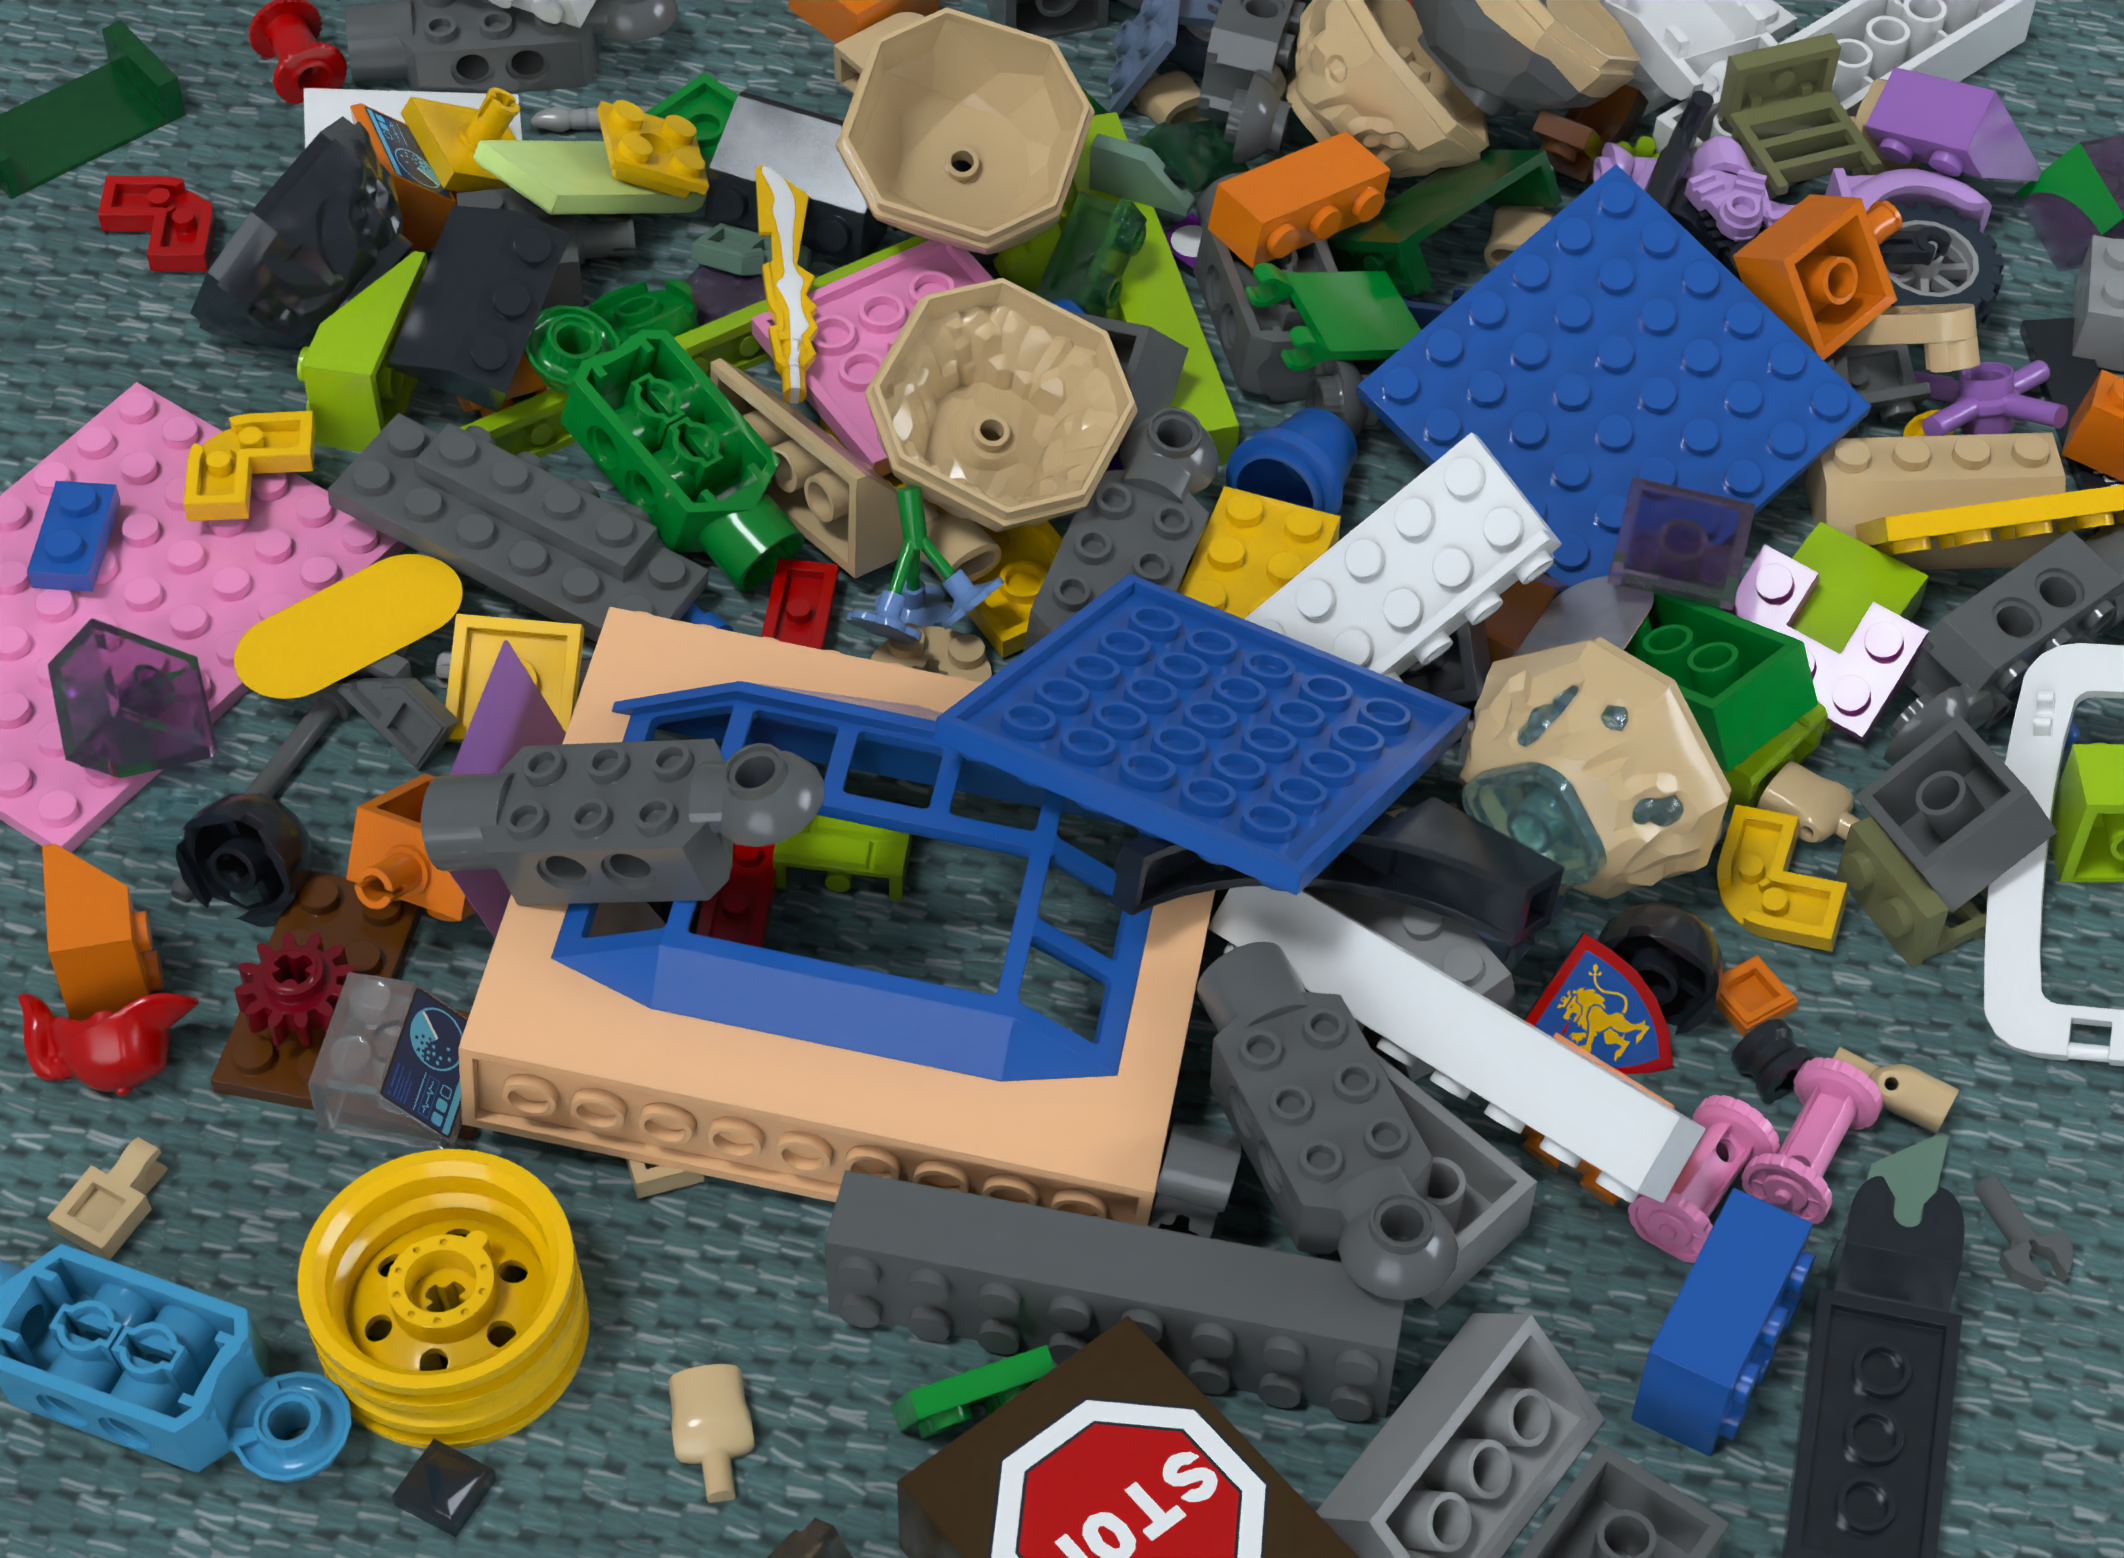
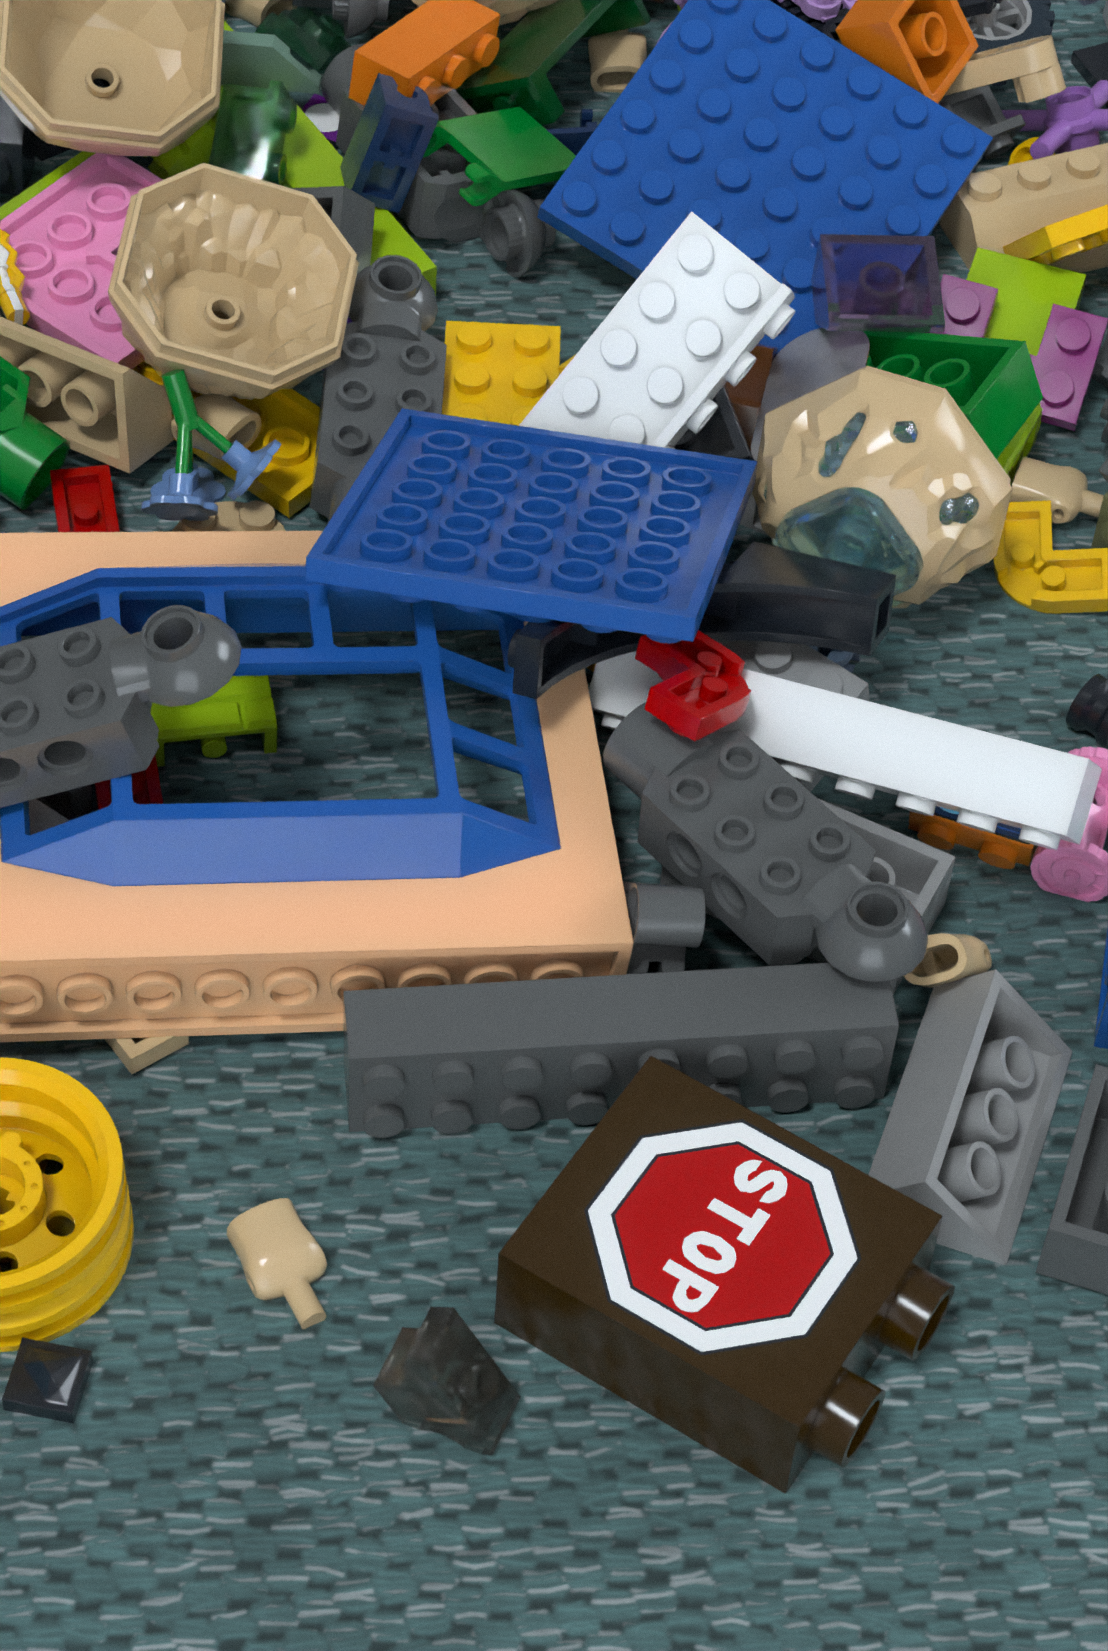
camera: 20 degrees left, 0 degrees up
(948, 1401) = (522, 1165): green plate -> none
(1223, 290) = (388, 144): none -> dark blue hinge
(1297, 461) = (500, 286): blue piece -> none
(1314, 942) = (699, 684): none -> red plate
(1491, 1289) = (950, 959): none -> tan piece
(1604, 1010) = (950, 688): shield -> none
(1673, 956) = (980, 654): black cylinder -> none
(1753, 996) = (1059, 664): orange tile -> none

